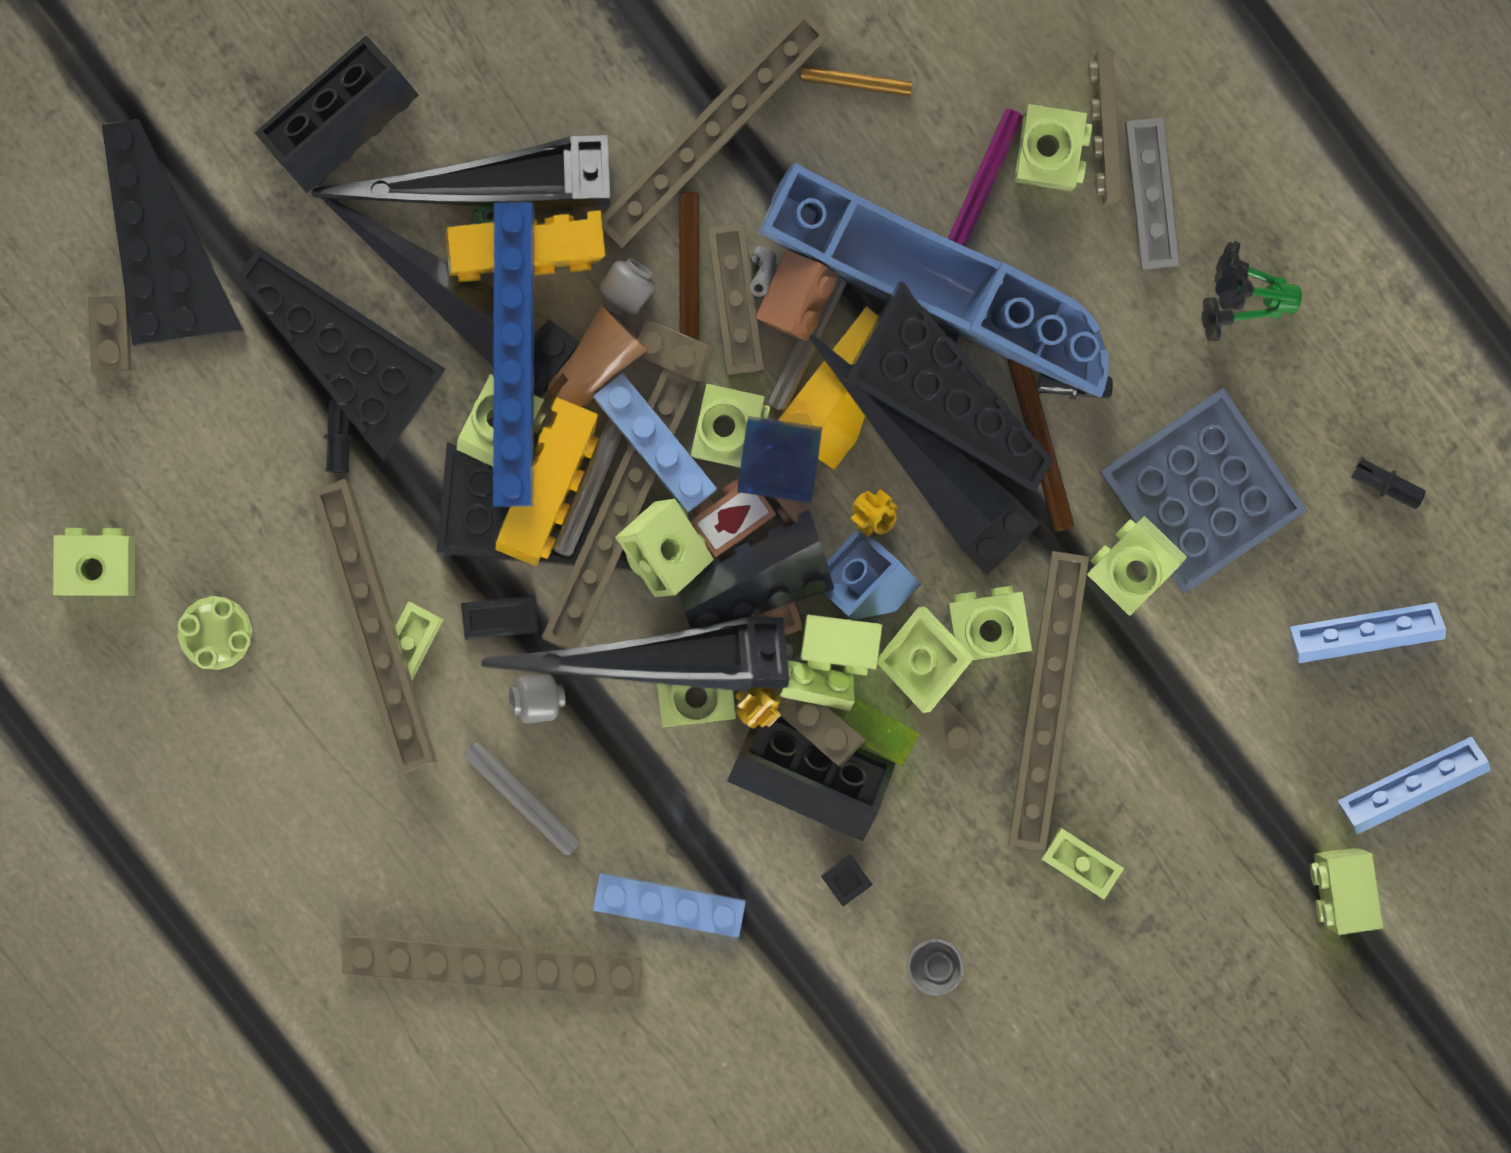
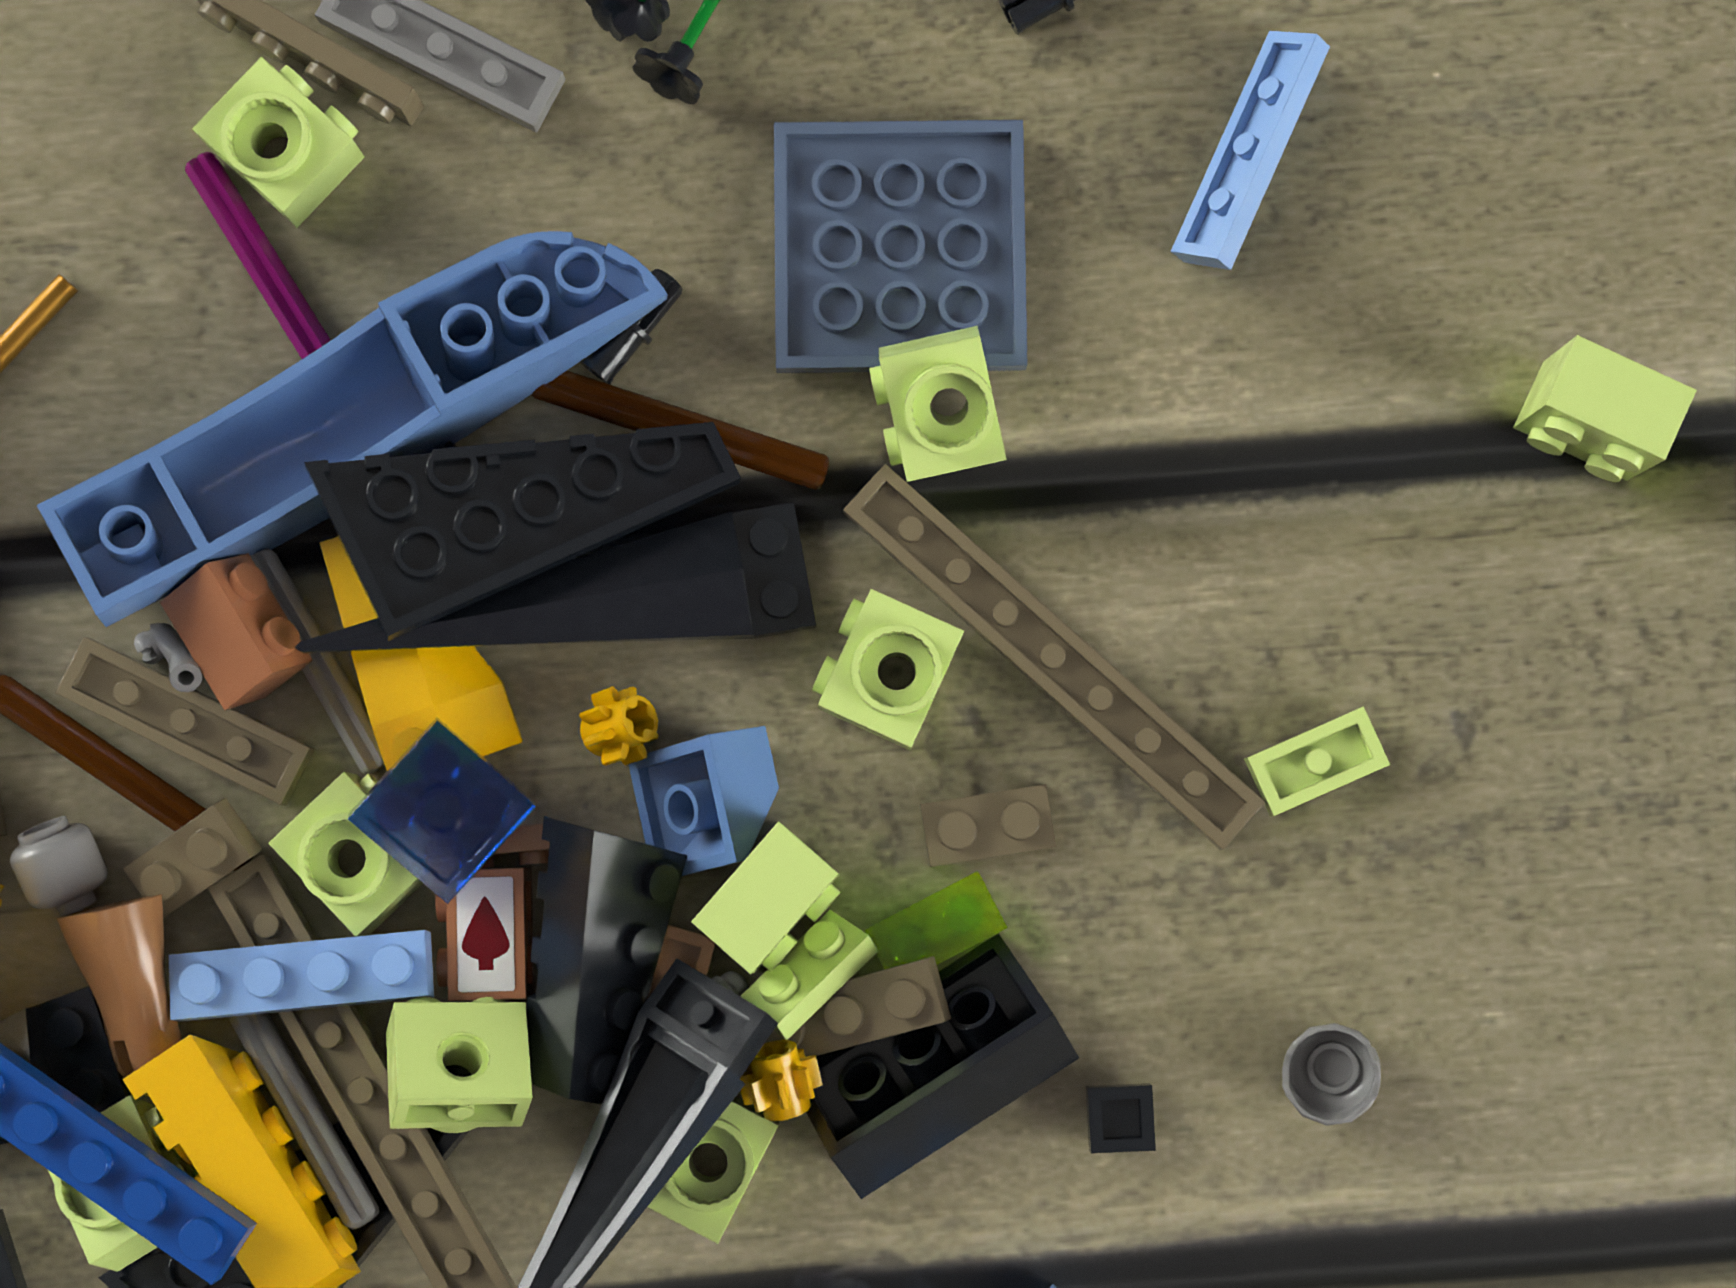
camera: 55 degrees left, 5 degrees down
(924, 659) = (874, 793): yellowish green plate -> none
(1414, 785) = (1509, 224): light blue plate -> none

